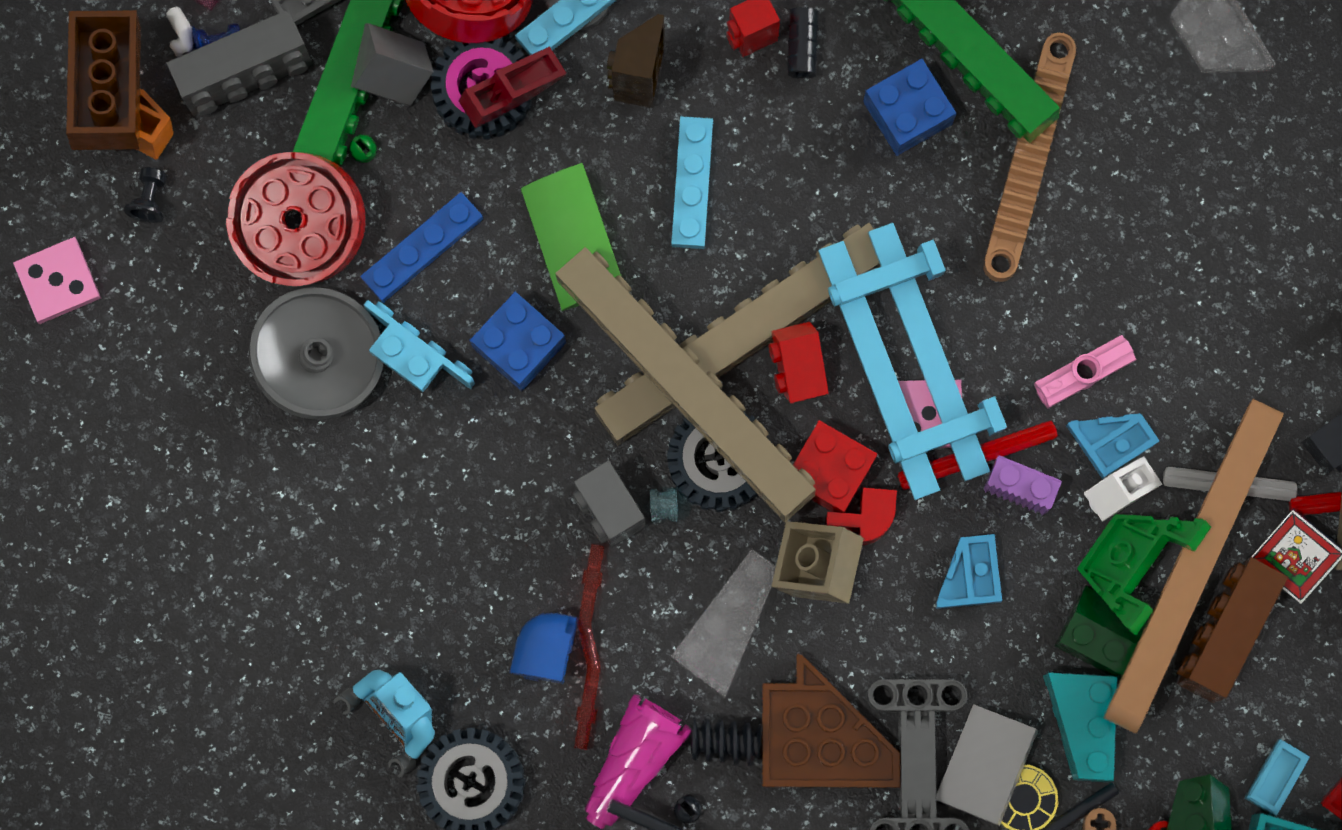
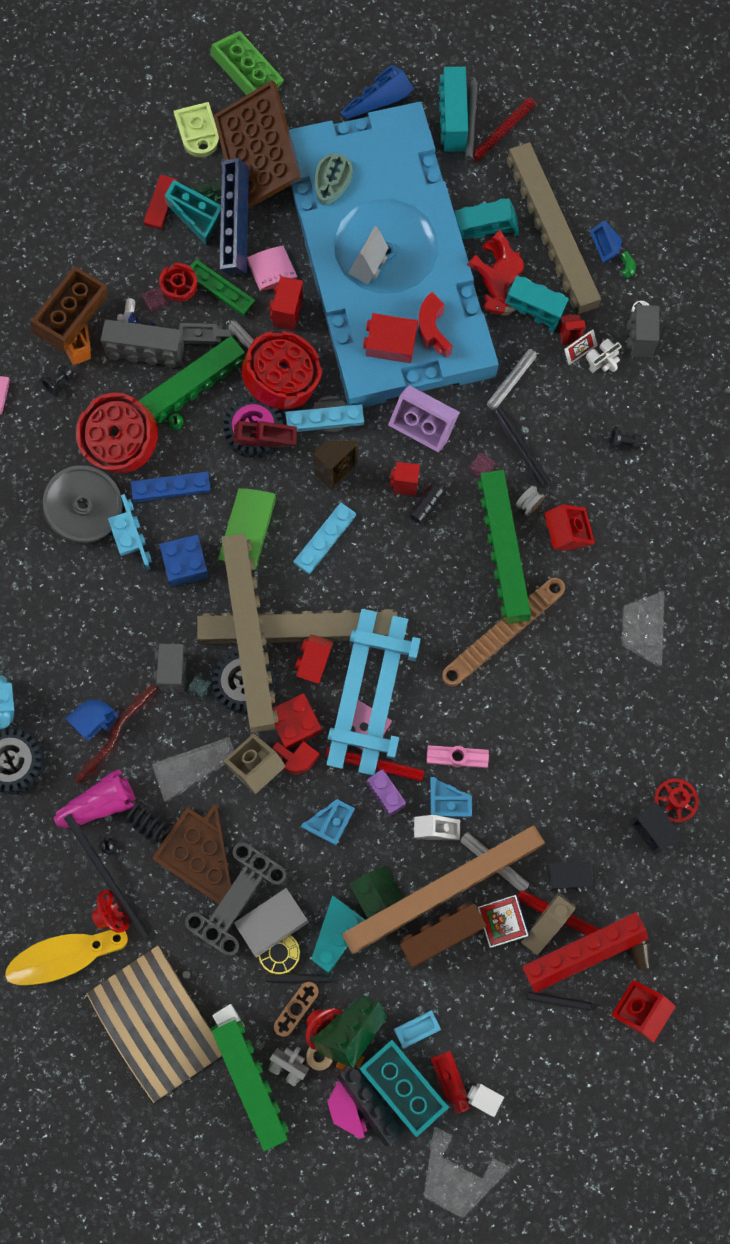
camera: 30 degrees right, 5 degrees down
(391, 65) = (214, 389): dark grey slope -> none
(909, 107) = (458, 568): blue brick -> none
(1125, 555) = (412, 862): green wing -> none

